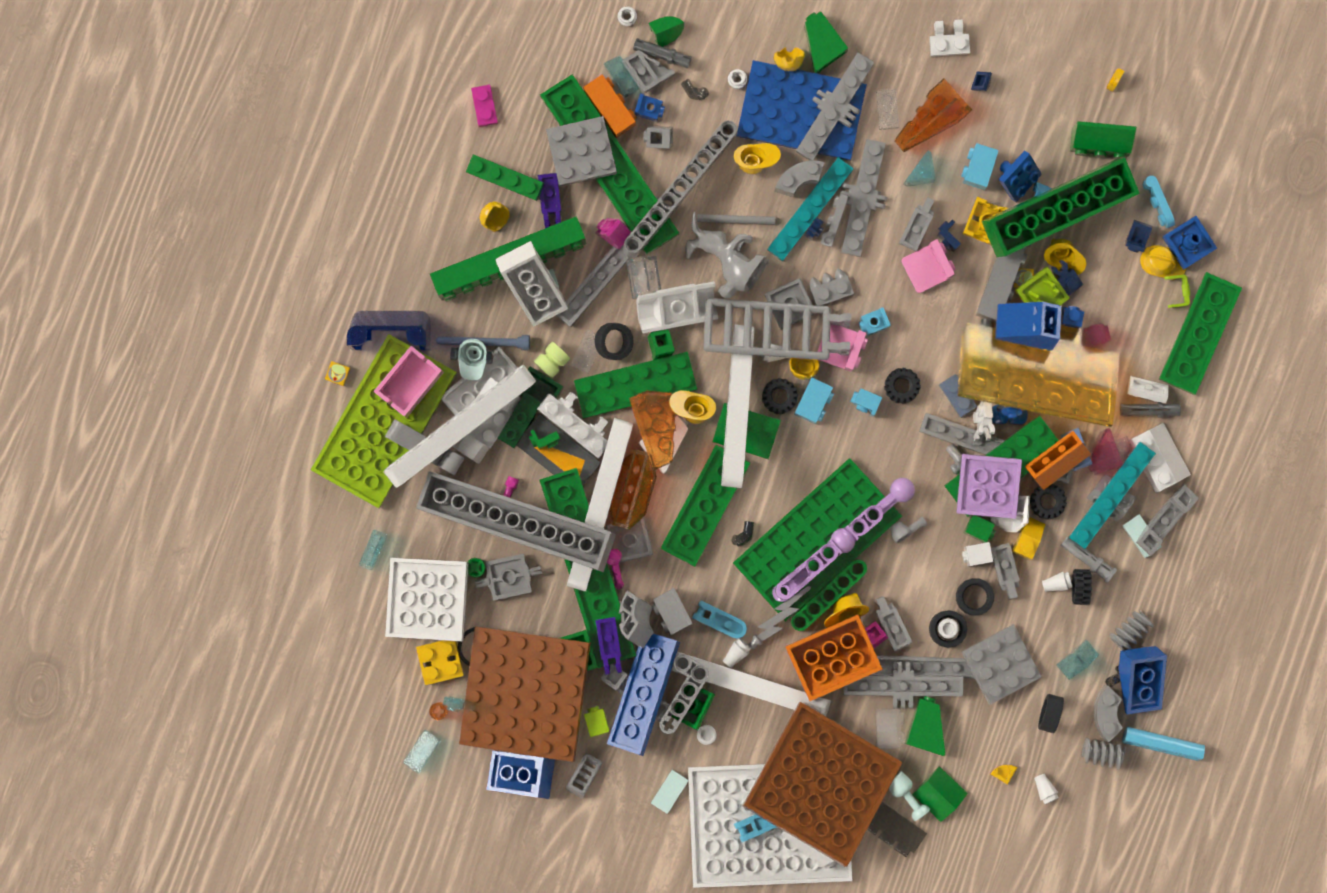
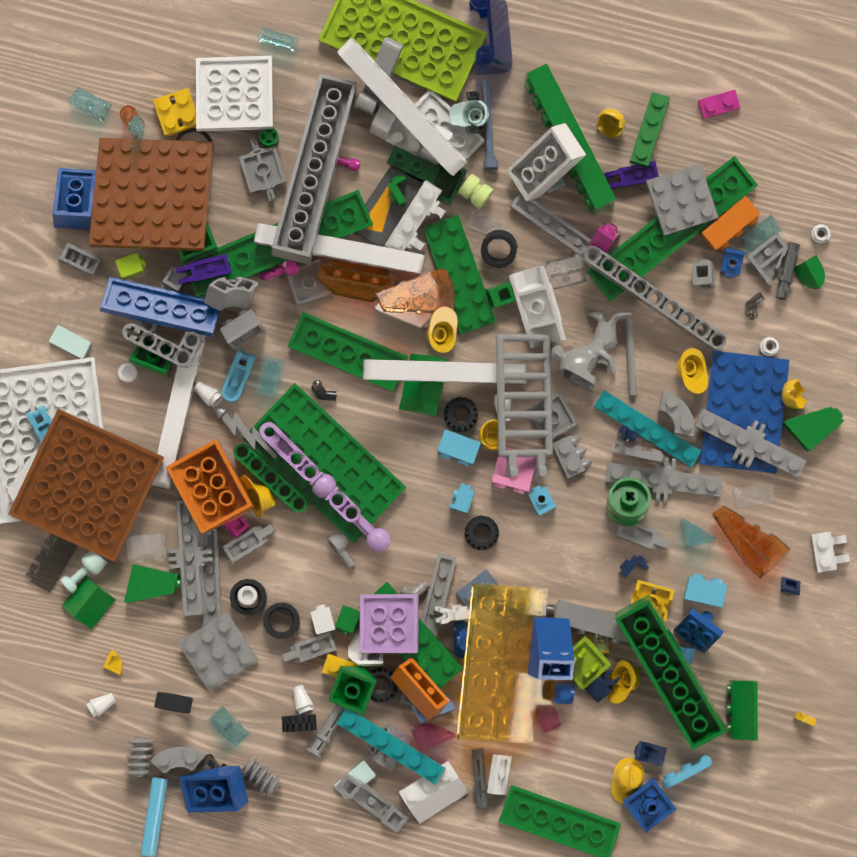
camera: 85 degrees right, 0 degrees up
(408, 381) = (440, 54): bright pink piece -> none
(724, 587) = (270, 376): none -> clear light blue plate
(876, 226) = (628, 501): none -> green wheel
(928, 266) = (600, 548): bright pink bracket -> none
(1052, 528) = (353, 688): none -> green slope
(1185, 290) = (603, 804): lime piece -> none

